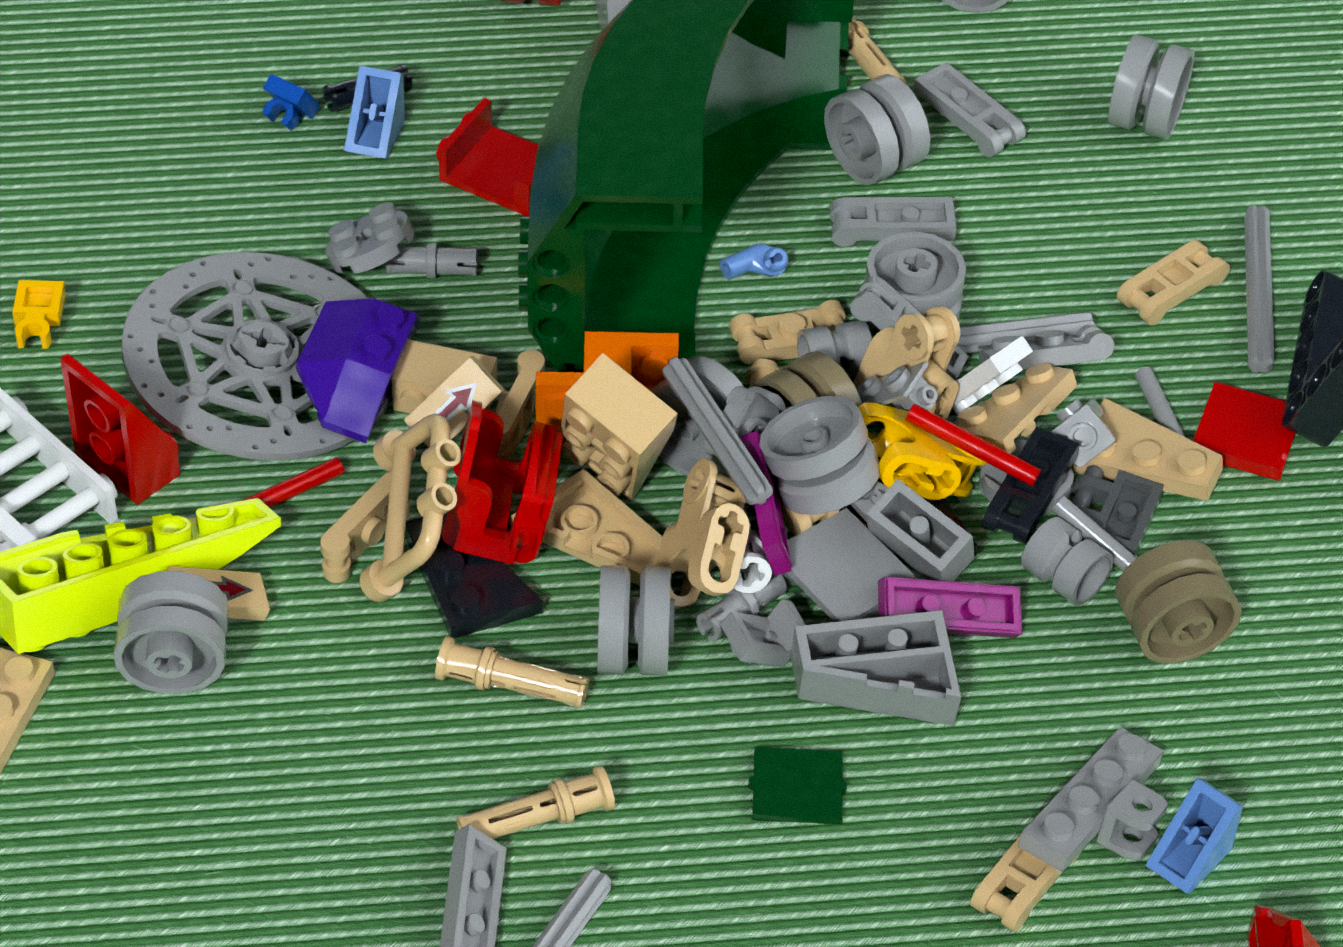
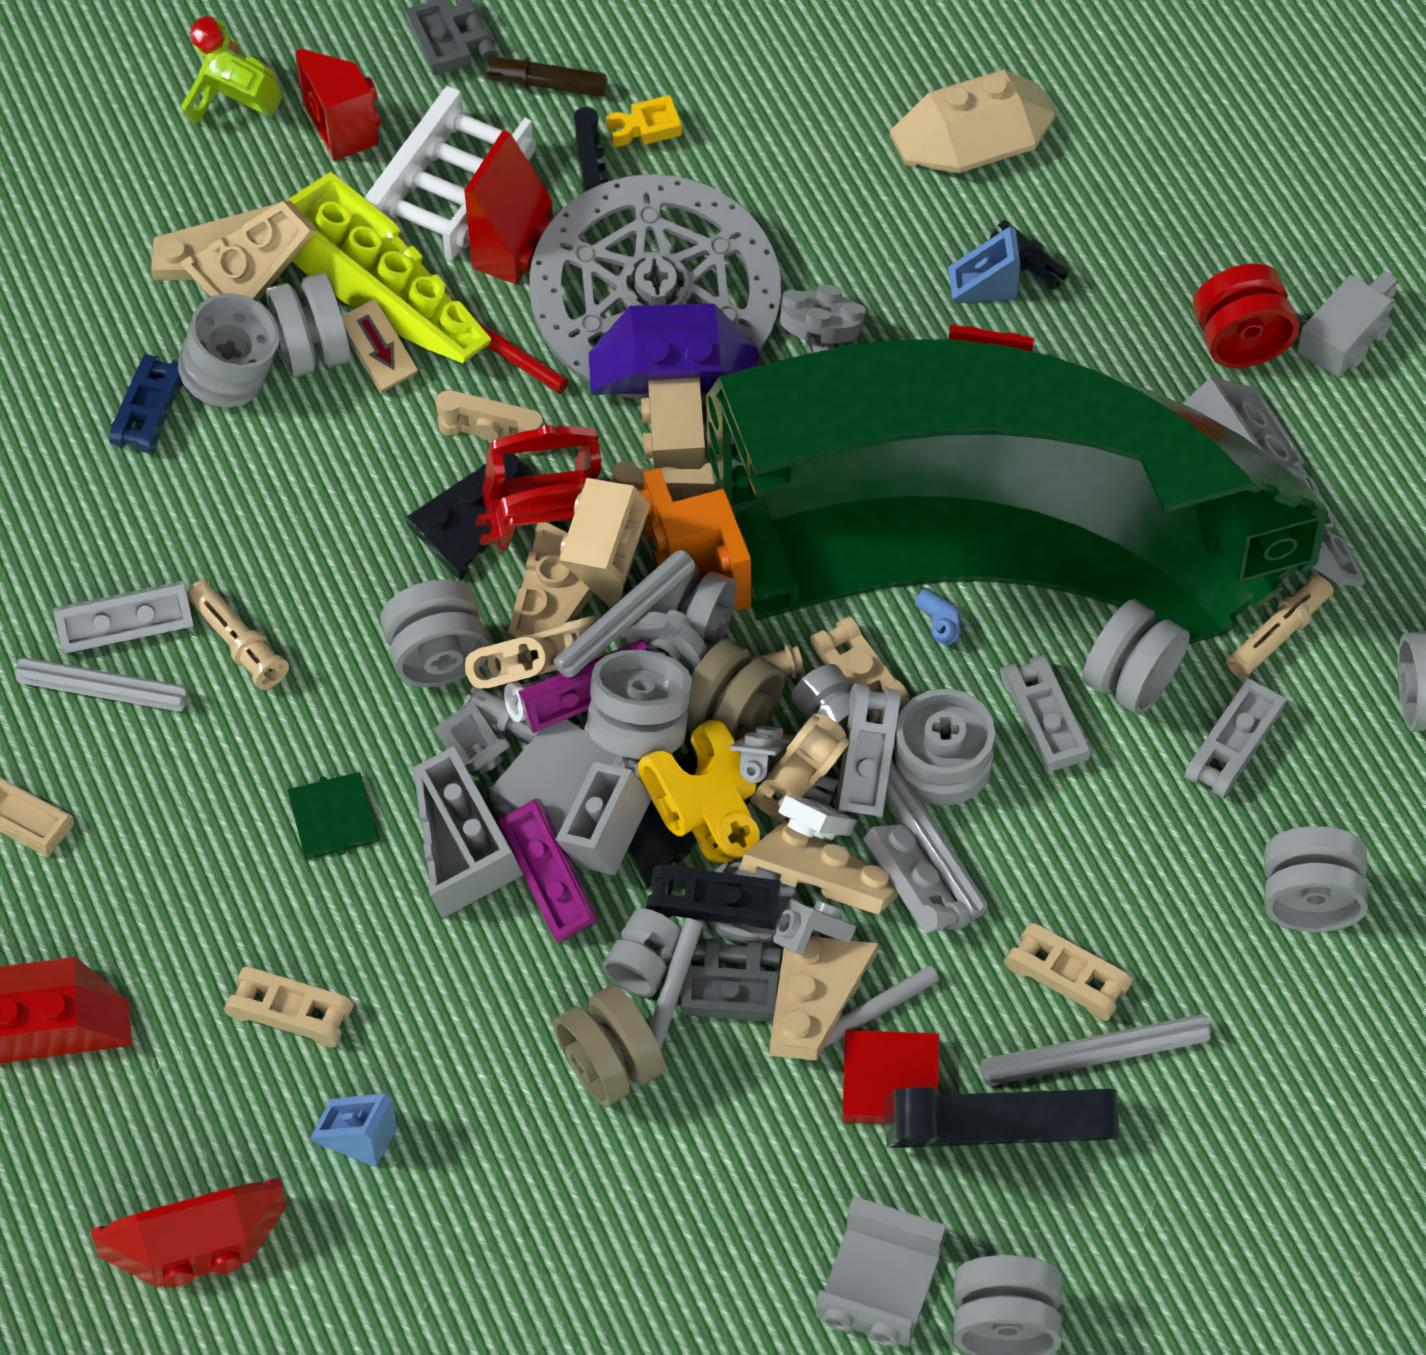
camera: 75 degrees right, 10 degrees up
(40, 363) = (587, 139): none -> black plate
(52, 659) = (253, 254): none -> tan wing
(169, 709) = (228, 350): none -> light grey wheel
(178, 821) = (146, 402): none -> dark blue plate
(194, 85) = (974, 123): none -> tan wedge
(289, 98) = (982, 203): blue tile -> none
(395, 454) = (441, 452): tan bar -> none
(456, 394) = (637, 435): tan tile -> none
(489, 669) = (369, 556): tan pin -> none
(973, 445) = (719, 828): red bar -> none
(1101, 801) = (370, 1039): light grey plate -> none

